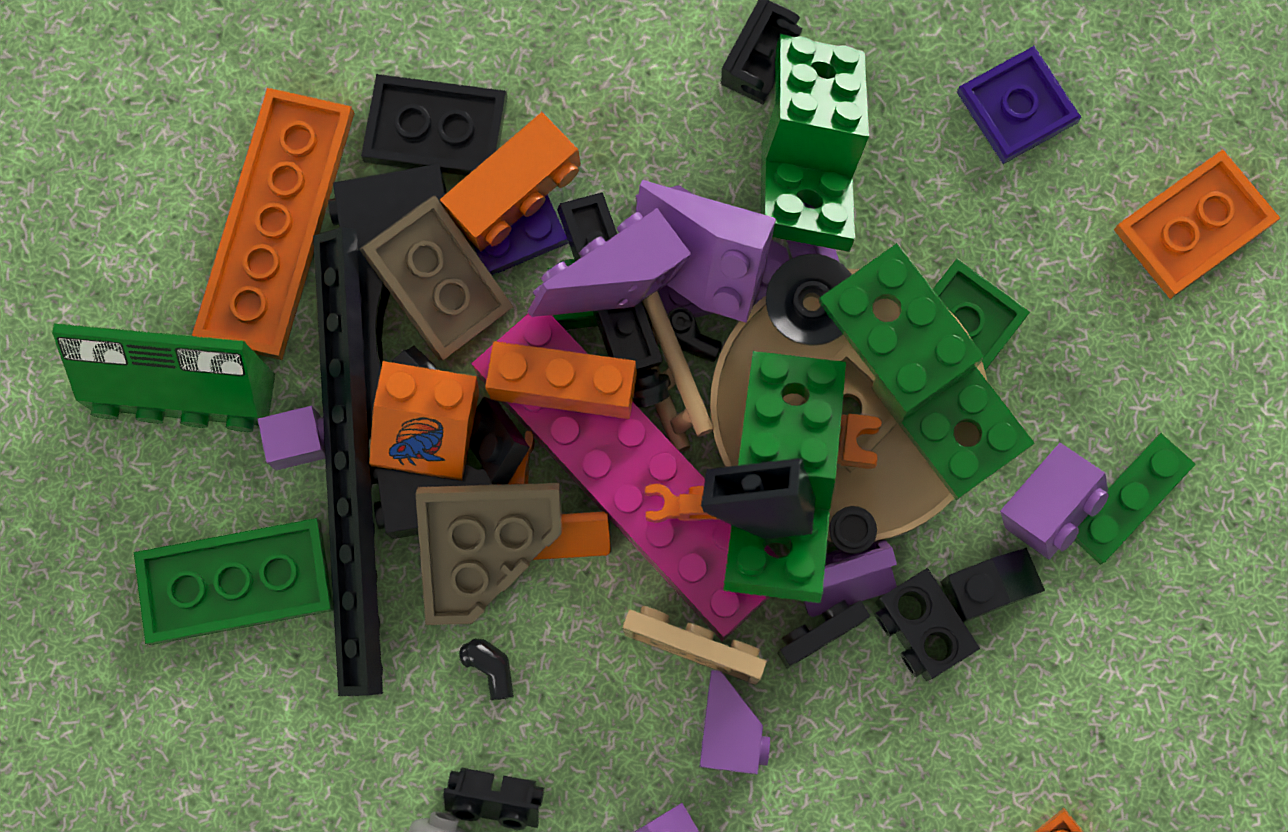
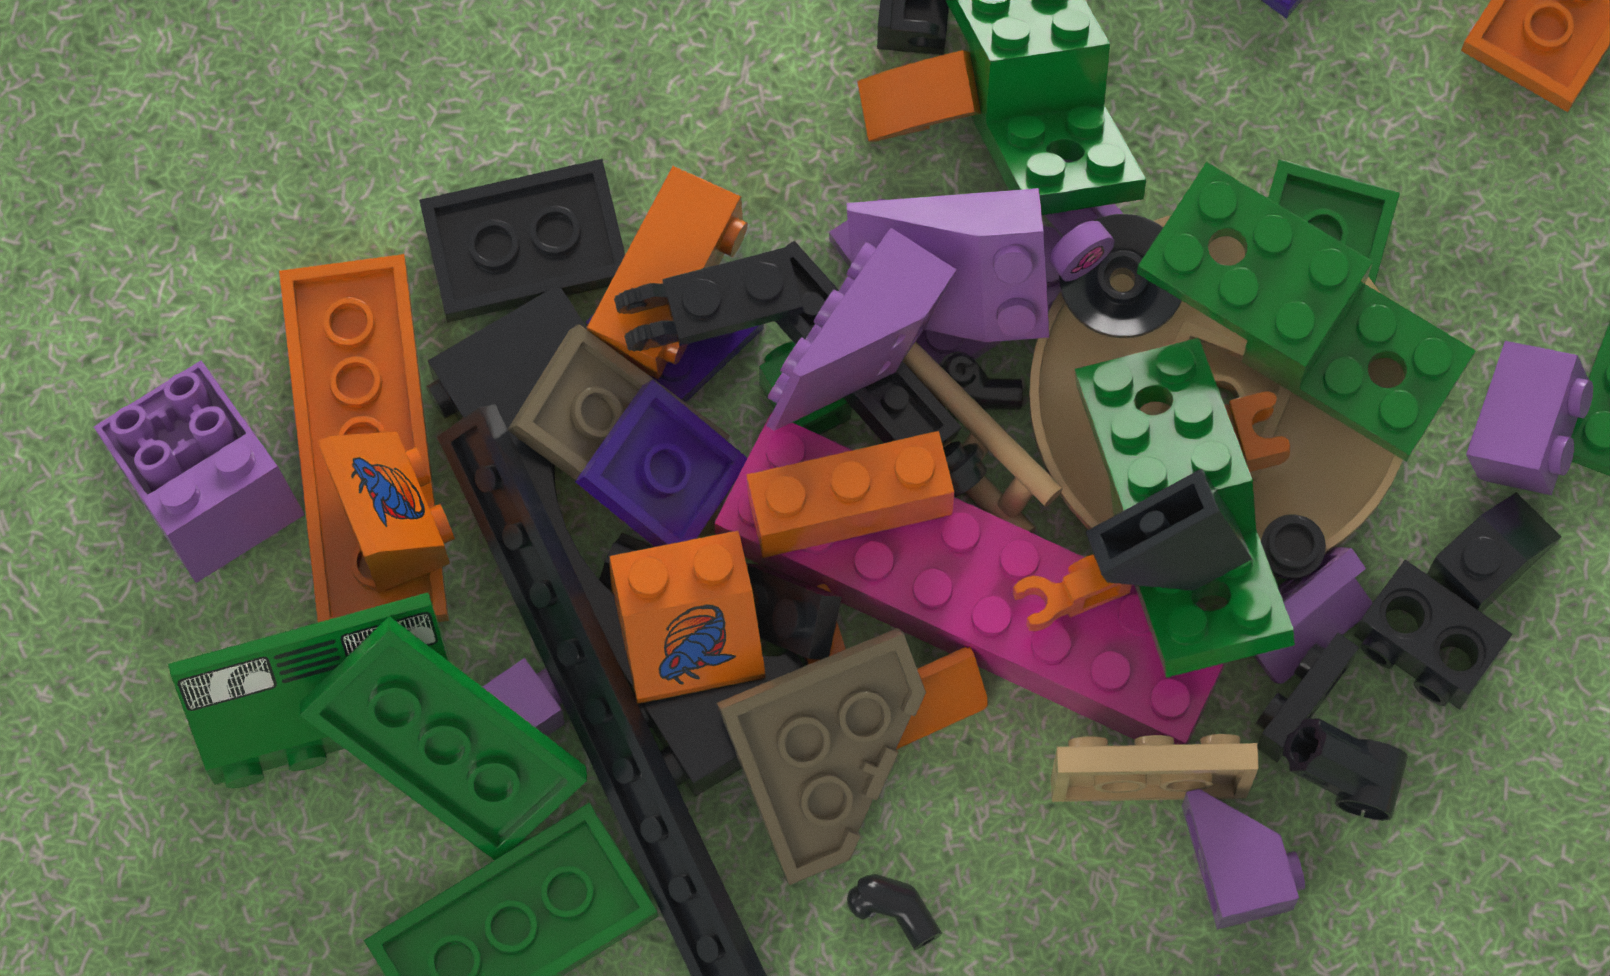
camera: 25 degrees left, 5 degrees down
(161, 201) = (199, 471): none -> medium lavender slope
(226, 441) = (443, 739): none -> green plate
(258, 269) = (386, 505): none -> orange slope
(451, 314) = (662, 468): none -> dark purple plate
(529, 213) = (714, 300): none -> black hinge
(731, 125) = (919, 96): none -> orange slope
(788, 271) = (1081, 250): none -> medium lavender tile
(832, 697) = (1358, 771): none -> black piece

